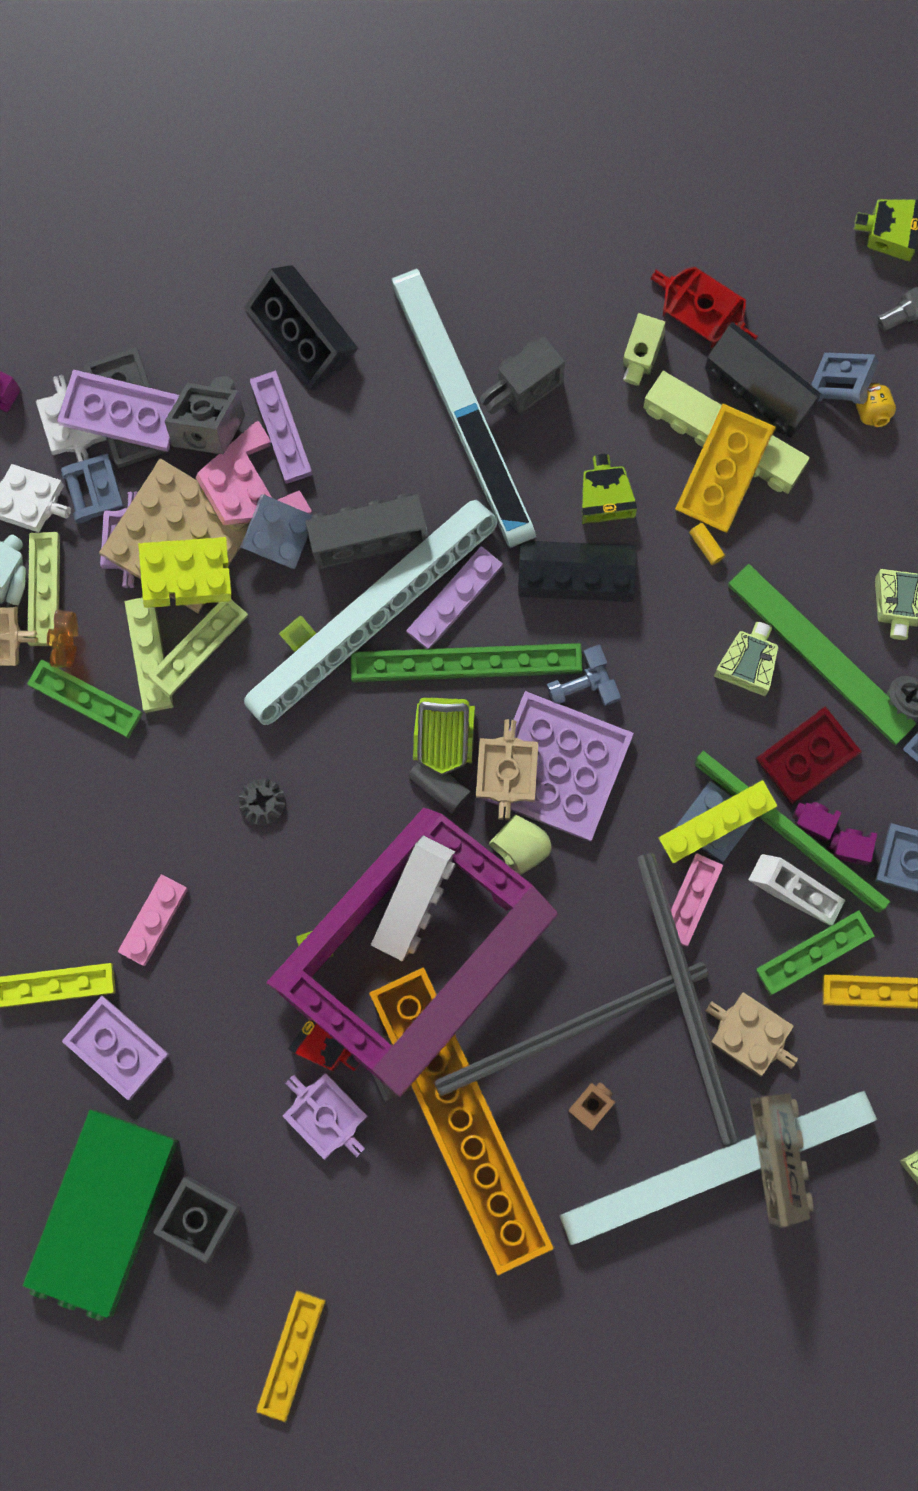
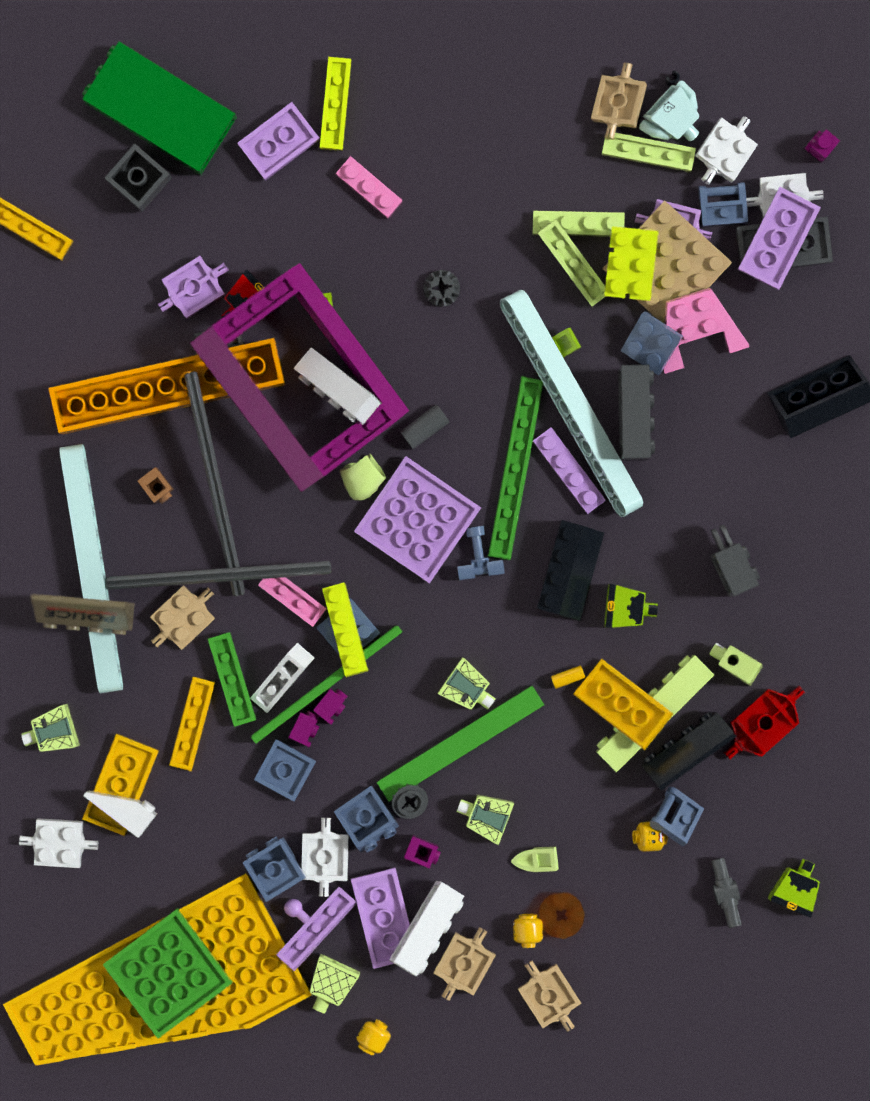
camera: 90 degrees right, 10 degrees up
(62, 639) = (600, 158): clear orange plate -> none
(85, 699) = (552, 167): bright green plate -> none
(206, 416) = (767, 301): dark grey brick -> none
(281, 427) = (740, 363): lavender plate -> none
(443, 734) = (459, 437): lime piece -> none
(463, 408) = (723, 510): light aqua beam -> none
(507, 770) = (420, 479): tan plate -> none
(808, 755) = (383, 713): dark red tile -> none

